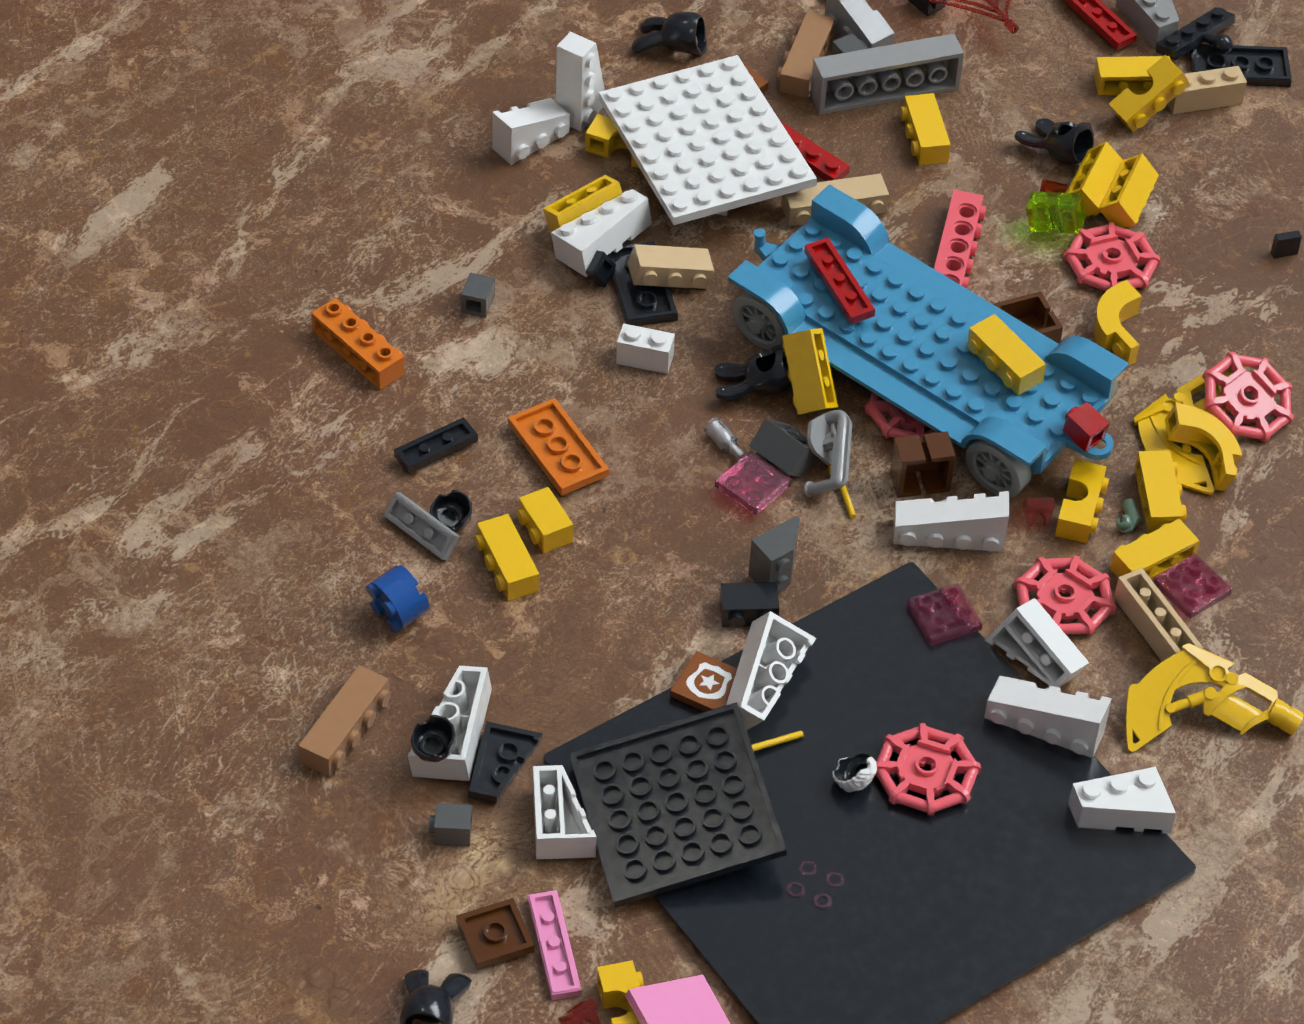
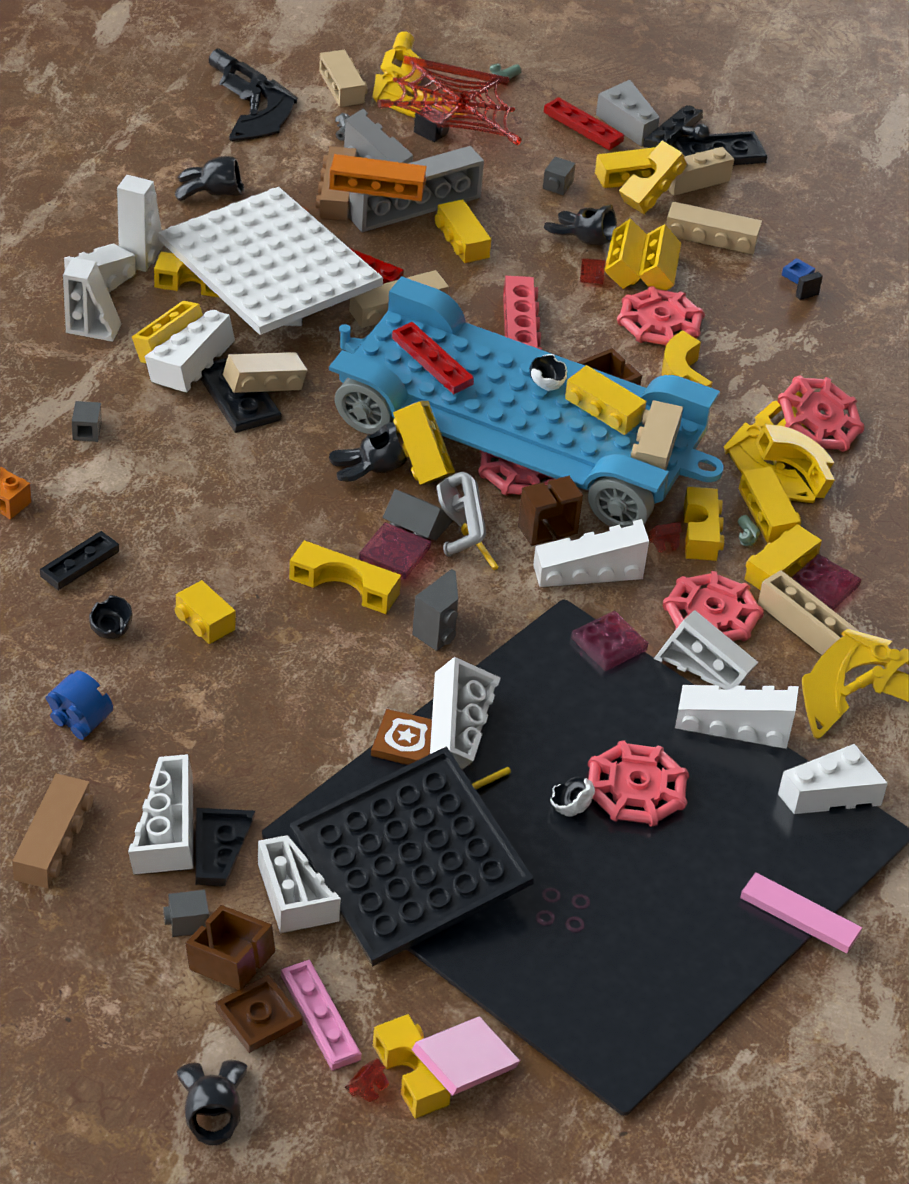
camera: 15 degrees left, 5 degrees down
(421, 526) = (84, 635): light grey tile -> none
(433, 739) = (153, 829): black hair -> none
(488, 867) = (230, 947): none -> reddish brown piece
(507, 163) = (88, 302): none -> white wedge
(507, 557) = (177, 651): yellow brick -> none
(558, 446) = (199, 545): orange plate -> none
(601, 268) = (199, 383): black tile -> none
(645, 348) = (260, 446): white brick -> none
(669, 487) = (317, 565): none -> yellow arch
(723, 437) = (355, 515): clear piece -> none
(747, 602) = (420, 658): black brick -> none
(840, 61) = (377, 177): none -> orange brick
(954, 314) = (548, 372): none -> hair
(1049, 75) = (559, 175): none -> dark grey brick
(1049, 403) = (658, 434): none -> tan brick
(1050, 929) = (801, 912): none -> bright pink tile
(1055, 210) = (601, 283): clear neon green brick -> none
(1085, 426) = (696, 451): red brick -> none
(1201, 160) = (714, 227): none -> tan brick
(1281, 223) = (797, 269): none -> blue tile

